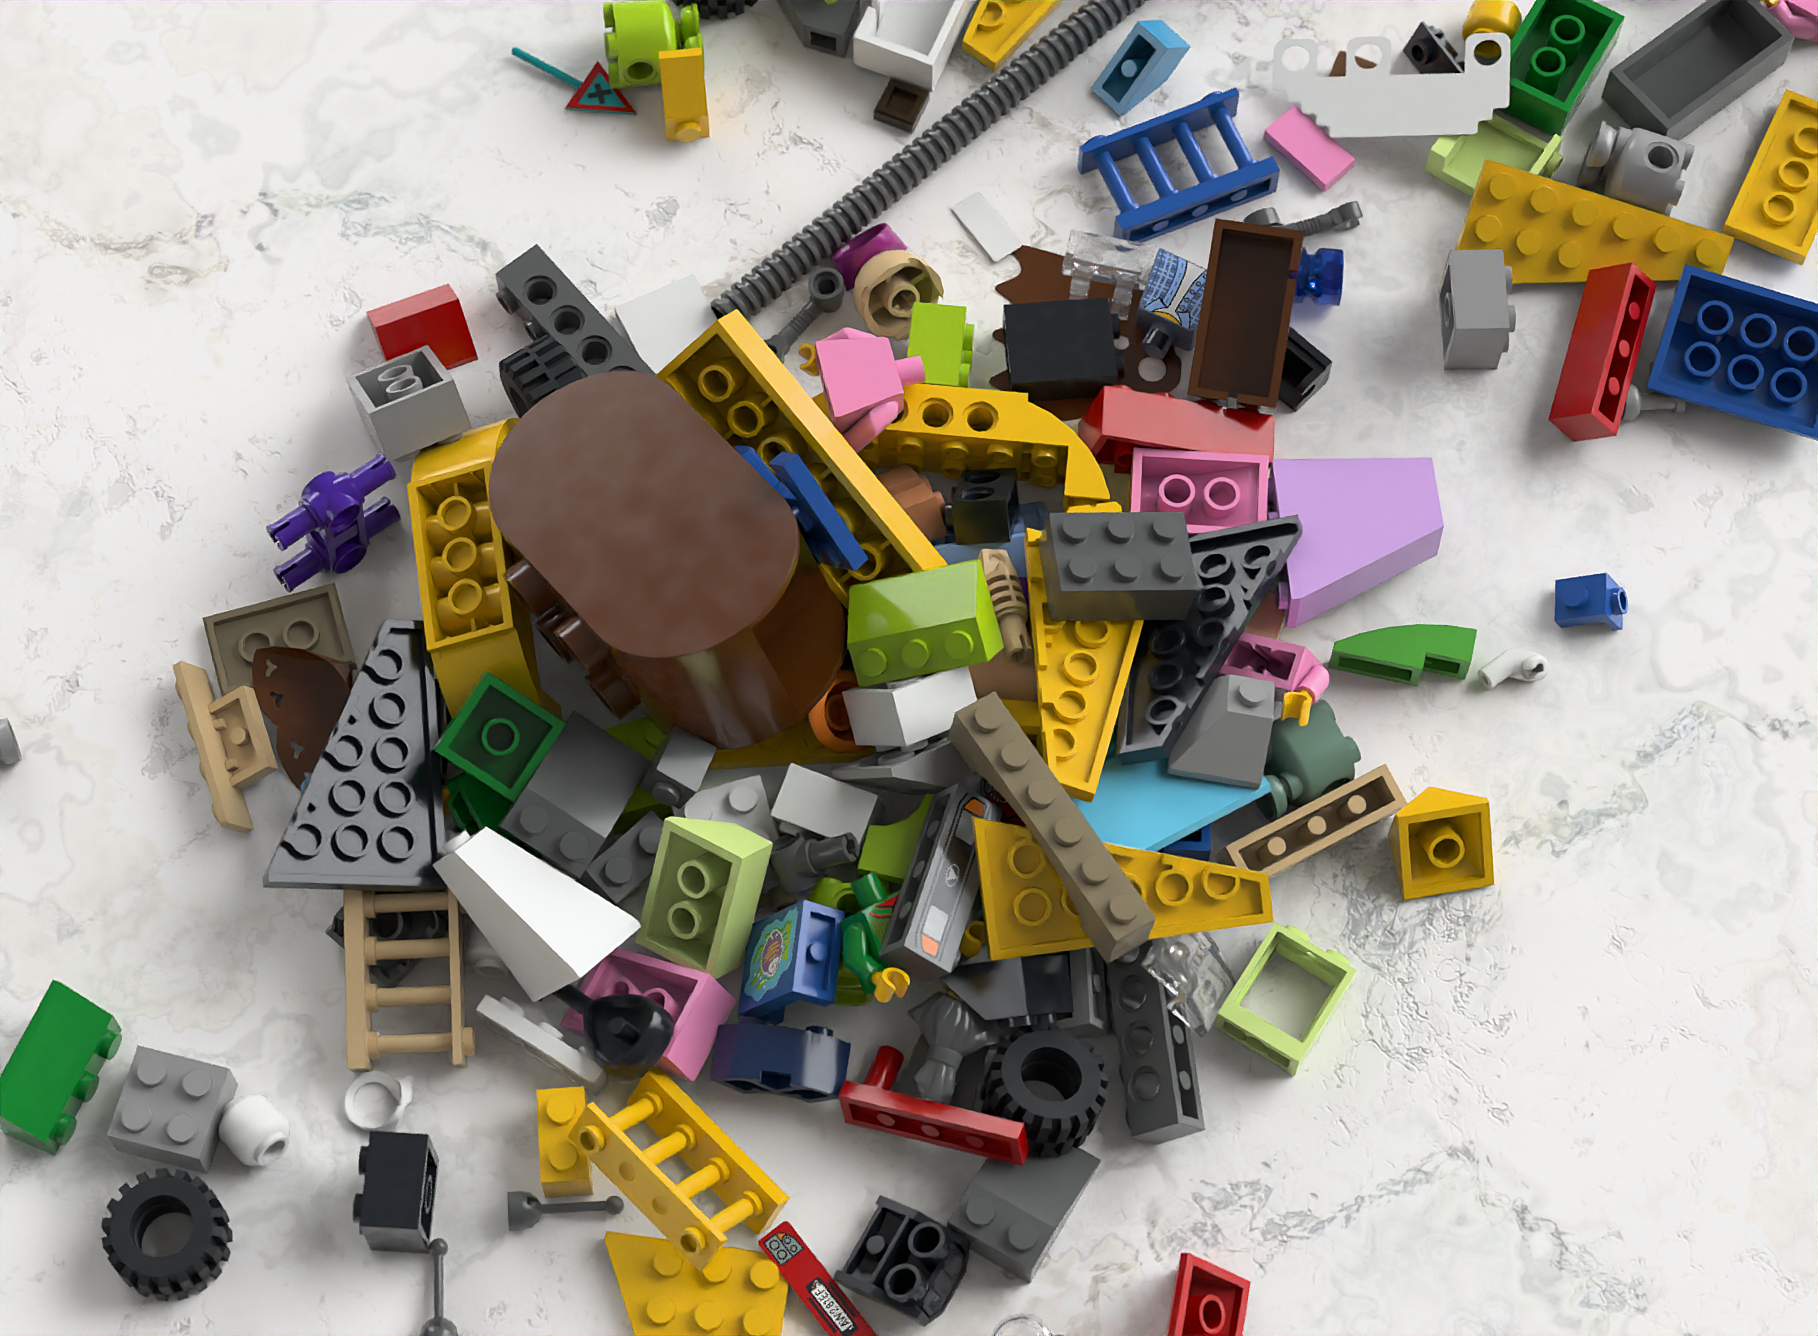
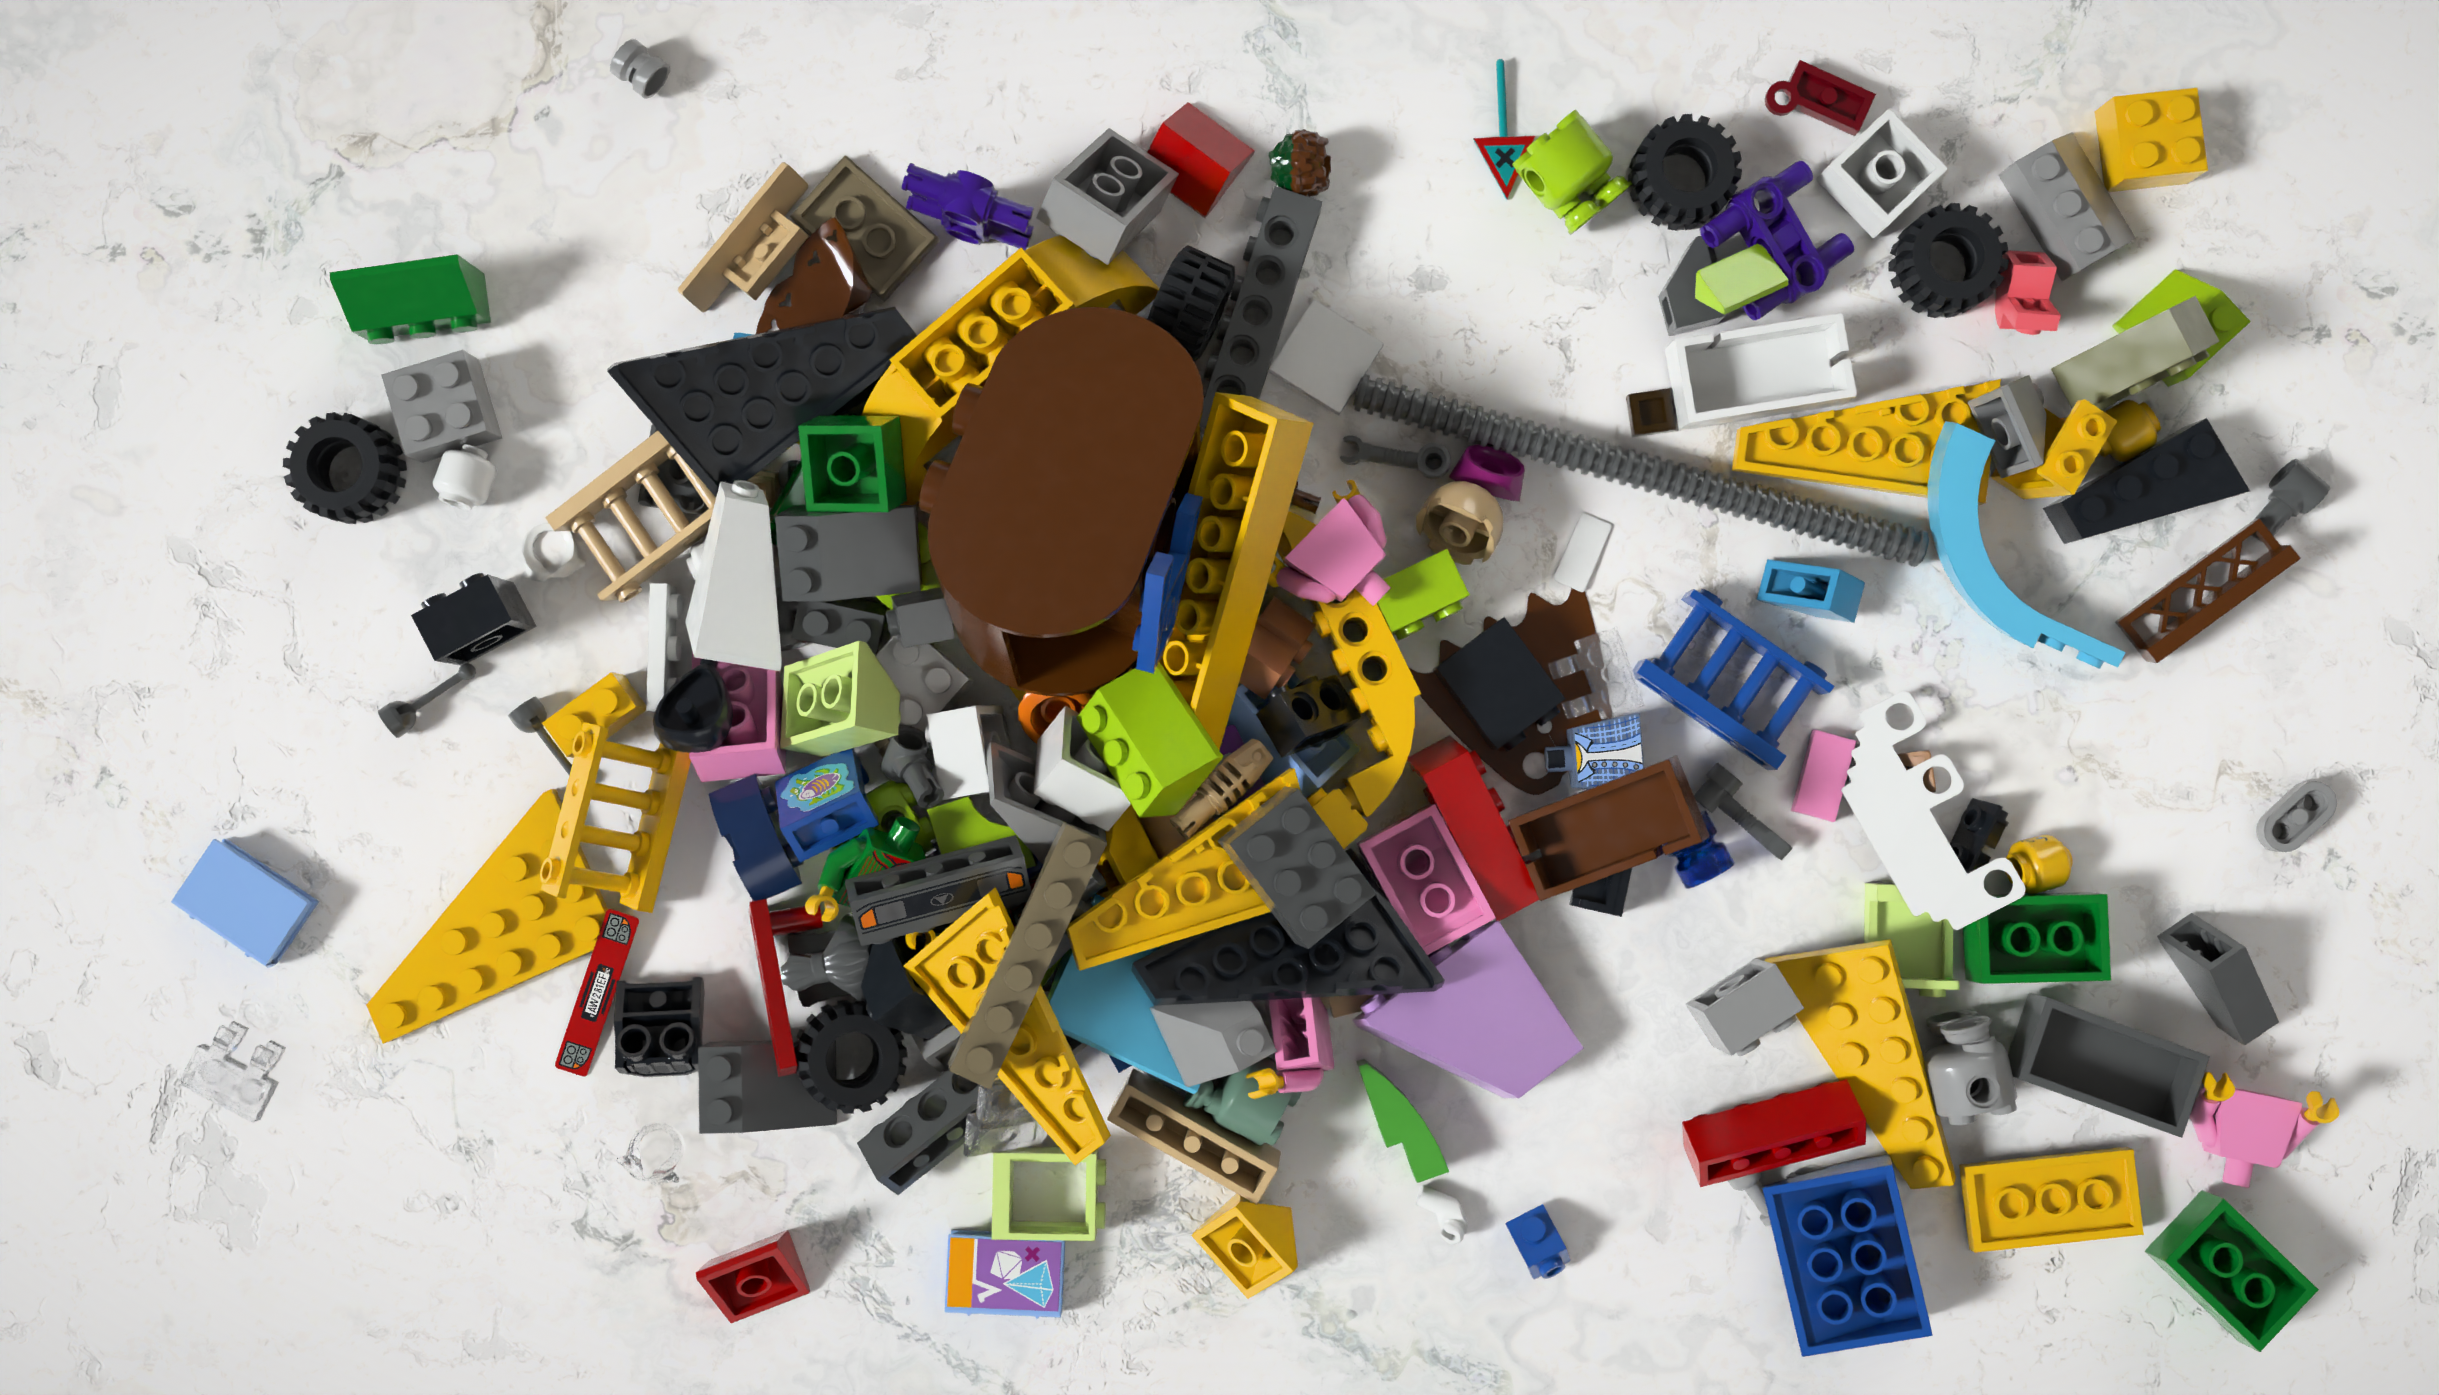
camera: 55 degrees right, 20 degrees up
(489, 244) = (1301, 163): none -> reddish brown piece
(684, 94) = (1536, 232): yellow slope -> none
(1341, 1084) = (1004, 1275): none -> piece

